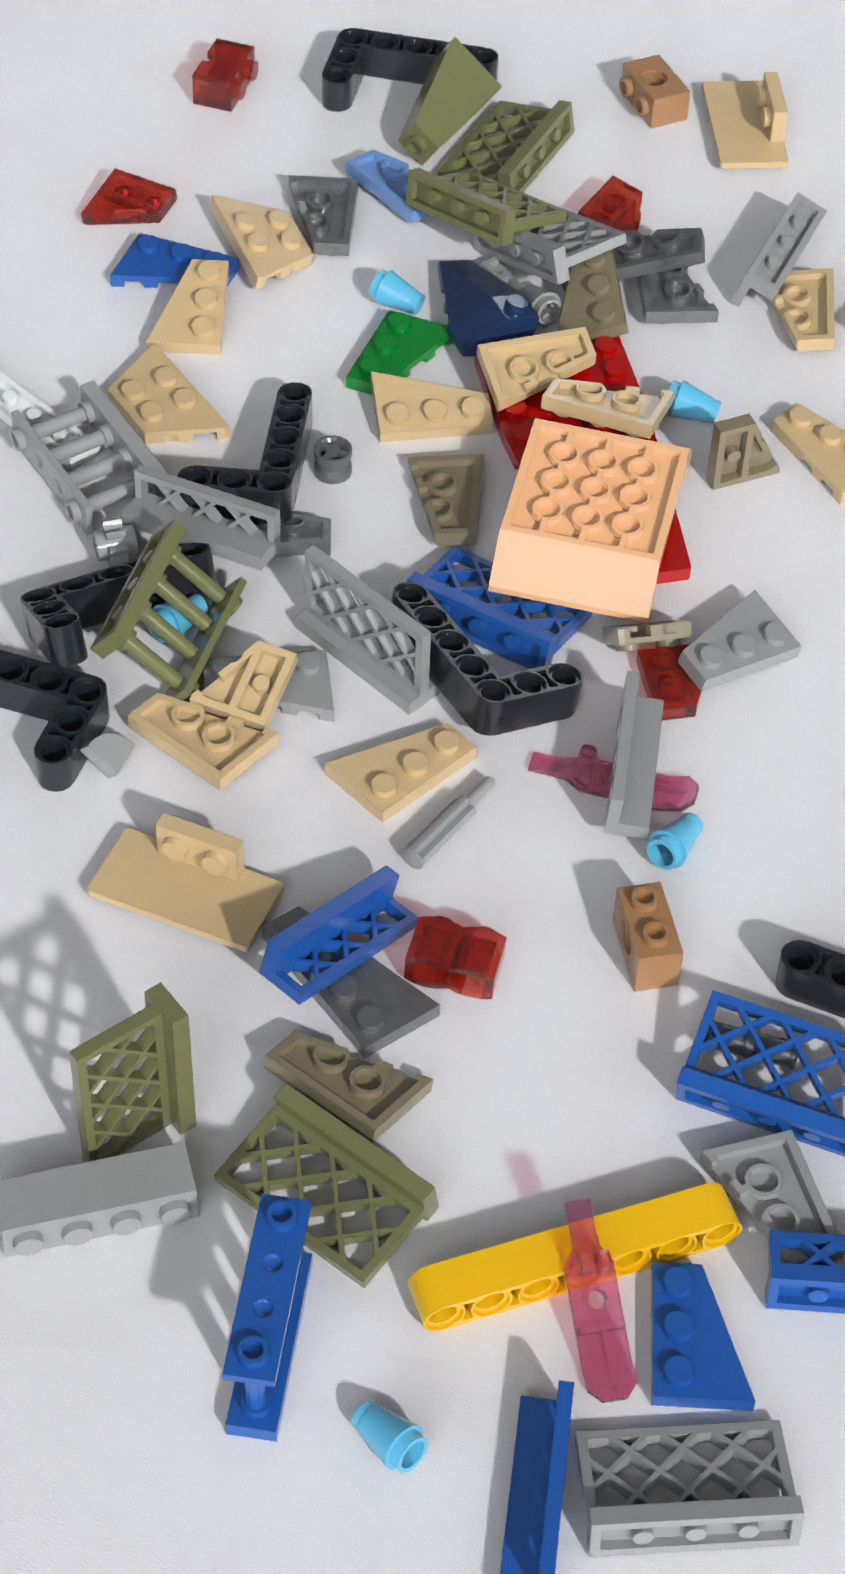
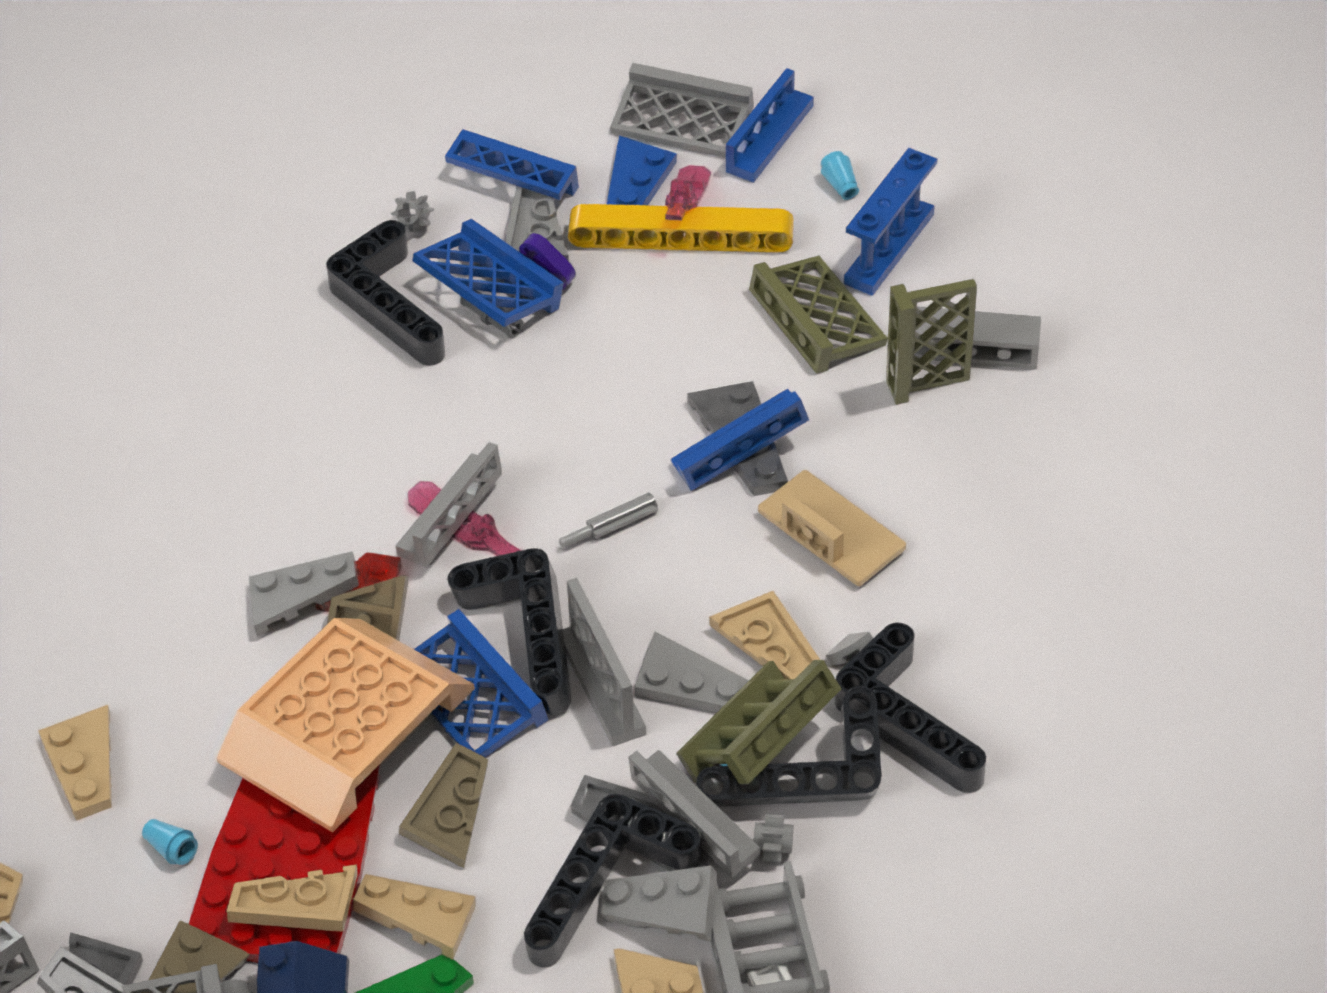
camera: 155 degrees left, 0 degrees up
(175, 447) = (664, 900): none -> light grey wing
(250, 686) = (717, 652): tan wing -> none
(332, 459) = (535, 868): dark grey wheel -> none
(352, 1090) = (773, 361): dark tan wing -> none
(402, 770) = (627, 572): tan wing -> none
(455, 957) = (659, 416): clear red brick -> none
(620, 410) = (256, 829): tan wing -> none
(647, 936) = (519, 388): medium nougat brick -> none
(672, 843) = (452, 454): medium azure cone -> none
(721, 1122) = (548, 257): none -> dark purple beam
(738, 453) = (175, 748): dark tan wing -> none

